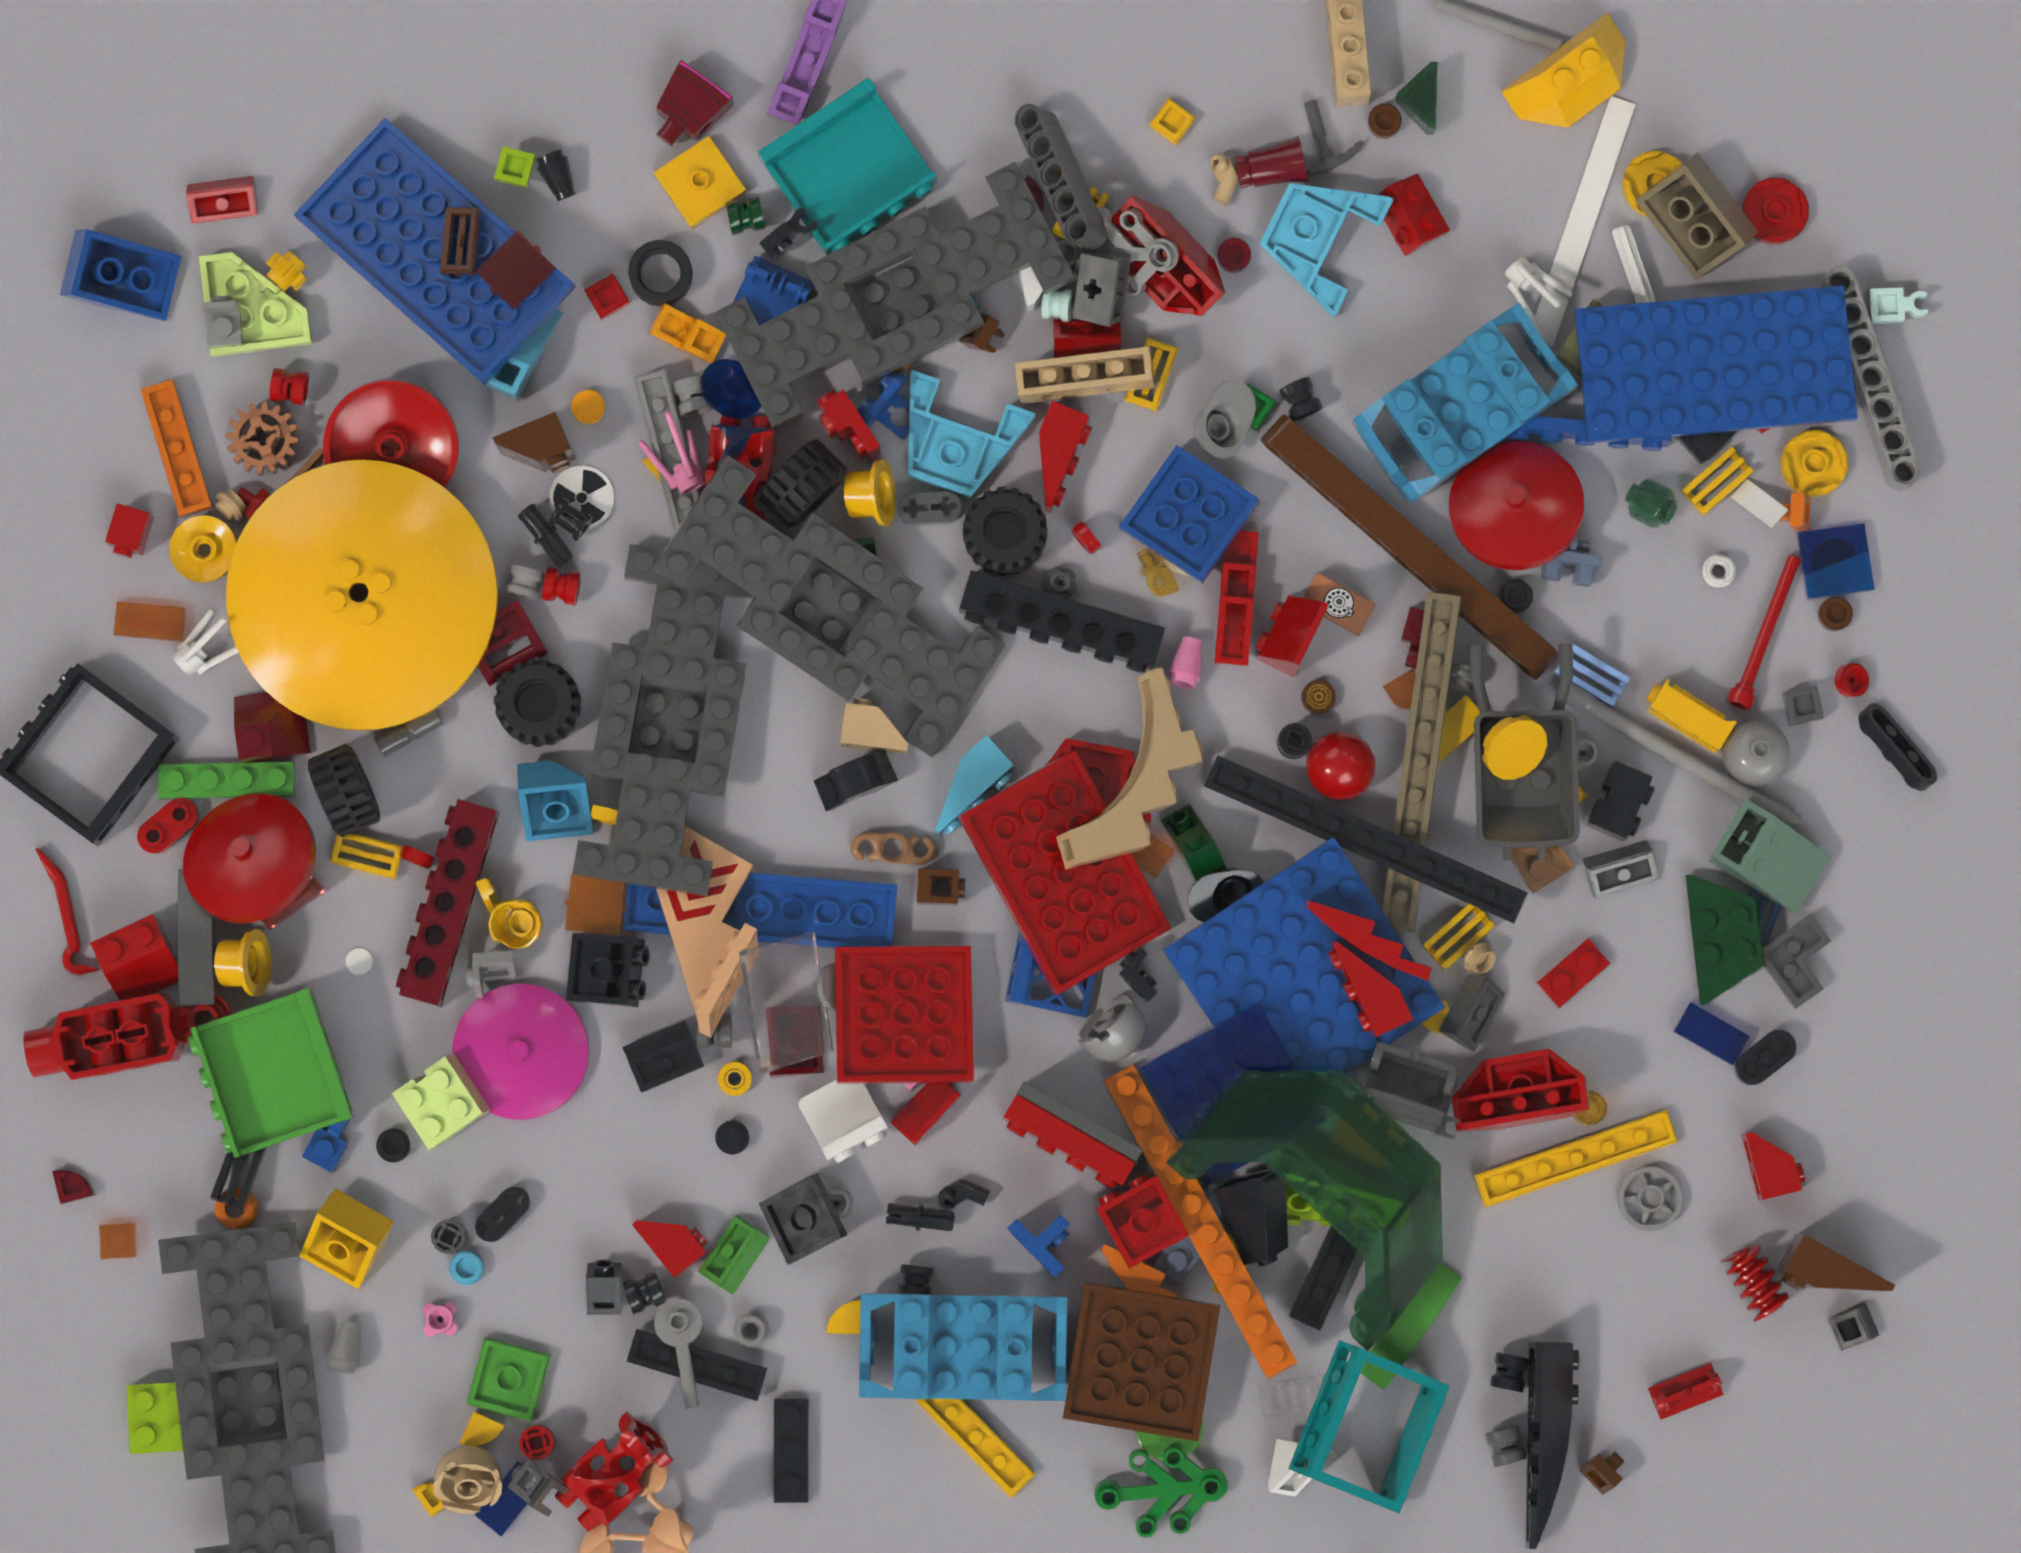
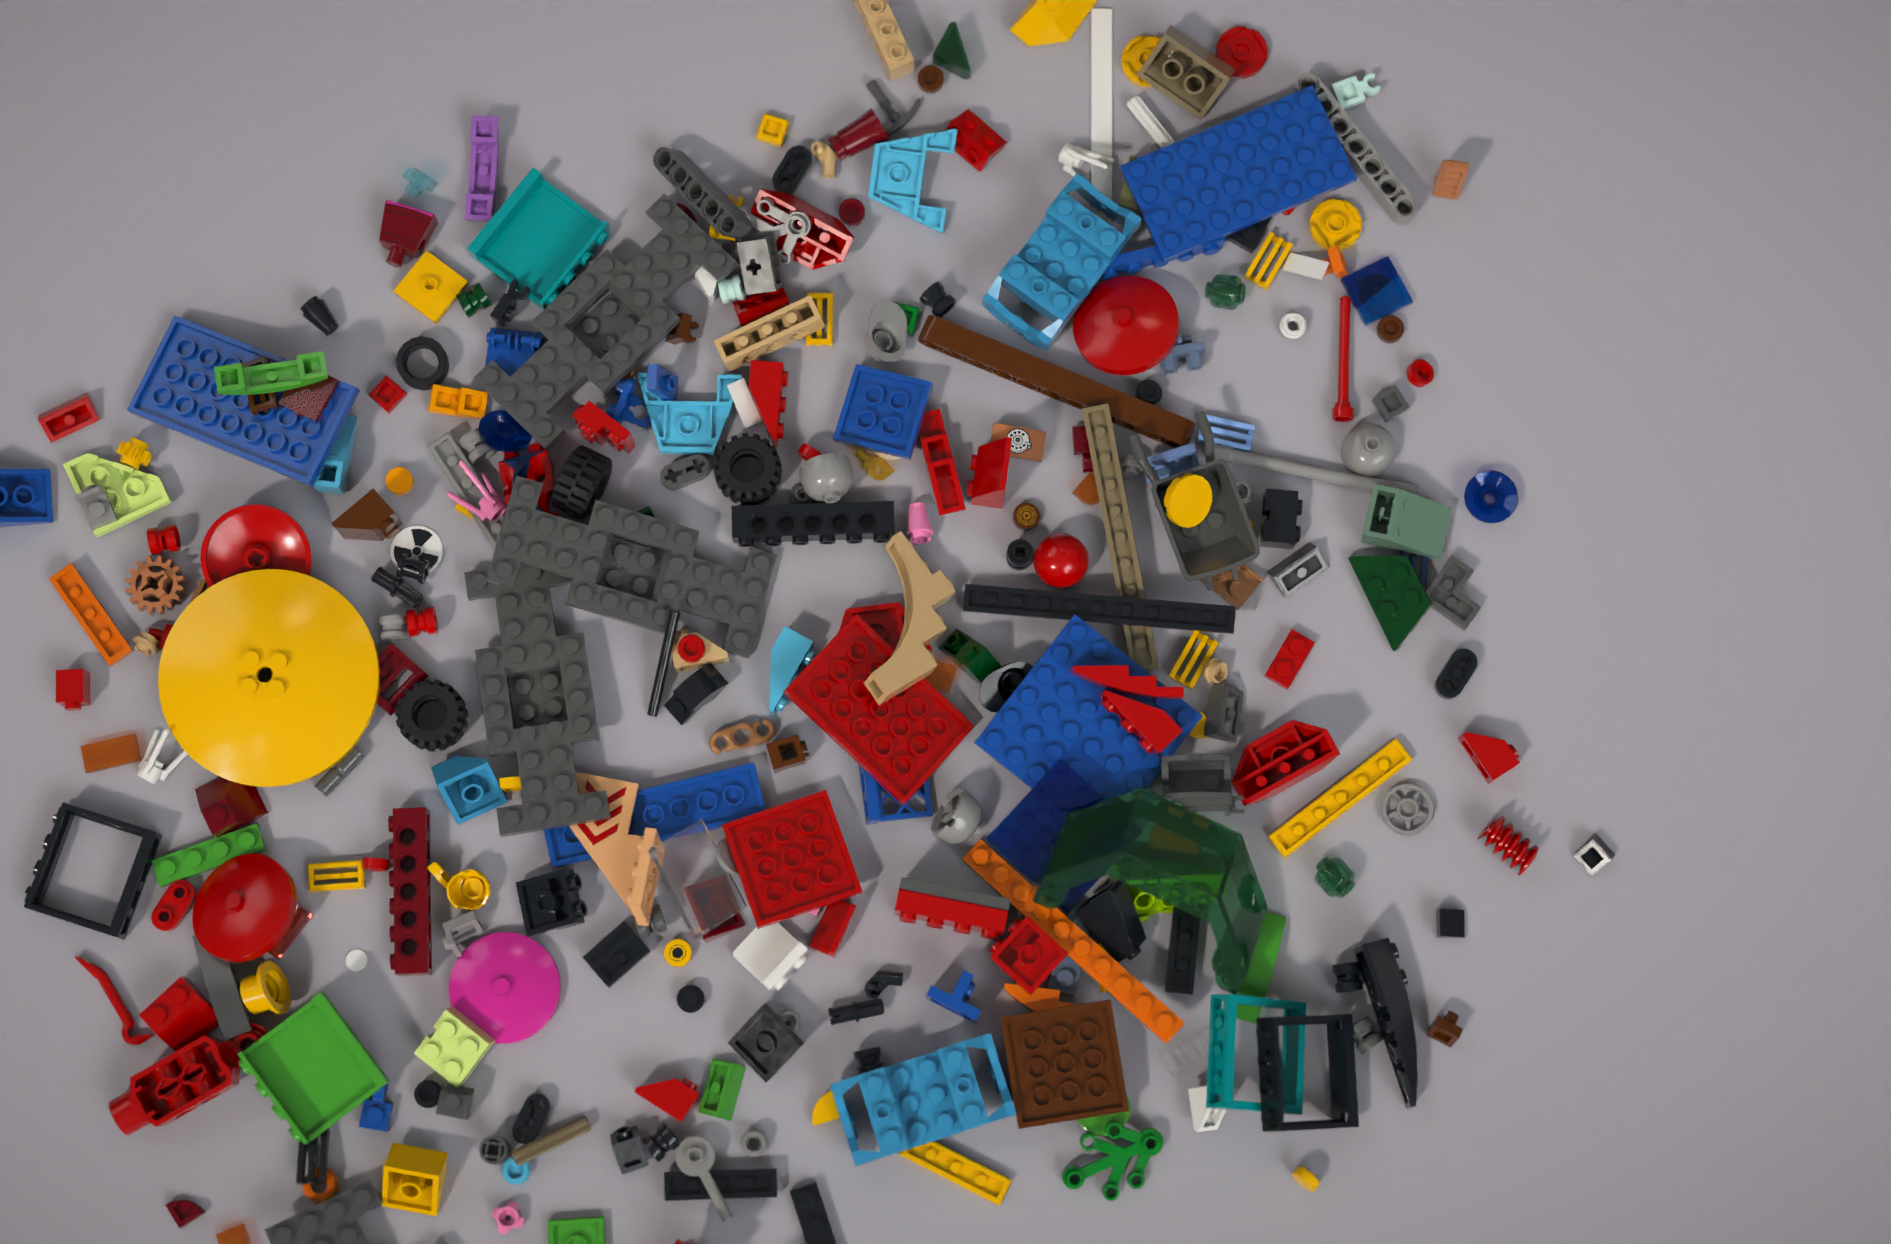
camera: 20 degrees left, 5 degrees down
(191, 537) = (124, 676): yellow dish -> none
(343, 790) = (301, 830): black tyre -> none
(421, 1165) = (455, 1102): none -> dark grey window
(478, 238) = (271, 377): none -> bright green slope
(515, 167) = (285, 319): lime tile -> none
(517, 1247) = (550, 1140): none -> dark tan axle
(595, 906) = (526, 855): clear orange piece -> none
(726, 48) = (418, 182): none -> clear light blue tile
(829, 732) = (663, 663): none -> black bar
(867, 726) = (691, 648): none -> red tile
(871, 493) = (636, 473): yellow piece -> none
(937, 393) = (662, 382): none -> blue plate
(1027, 448) = (744, 403): none -> white sticker
(1095, 574) = (827, 477): none -> light grey cylinder
(1140, 982) = (964, 774): black bracket -> none
(1177, 180) = (790, 171): none -> black plate
(1458, 725) = (1139, 502): yellow tile -> none
(1463, 1477) = (1341, 1072): none -> black window
(1516, 690) = (1171, 459): none -> light blue tile
(1535, 1250) = (1334, 877): none -> clear green head
(1597, 1110) = (1343, 759): clear yellow wheel -> none
(1653, 1350) = (1450, 923): none -> black slope
(1686, 1391) = (1486, 946): red hinge -> none
(1689, 715) = (1309, 438): yellow window -> none
(1711, 1034) = (1408, 670): clear blue tile -> none
(1817, 1266) = (1554, 816): reddish brown slope -> none
(1897, 747) = (1471, 411): black plate -> none
(1897, 849) = (1500, 488): none -> clear blue dish
(1971, 455) = (1450, 179): none -> nougat slope

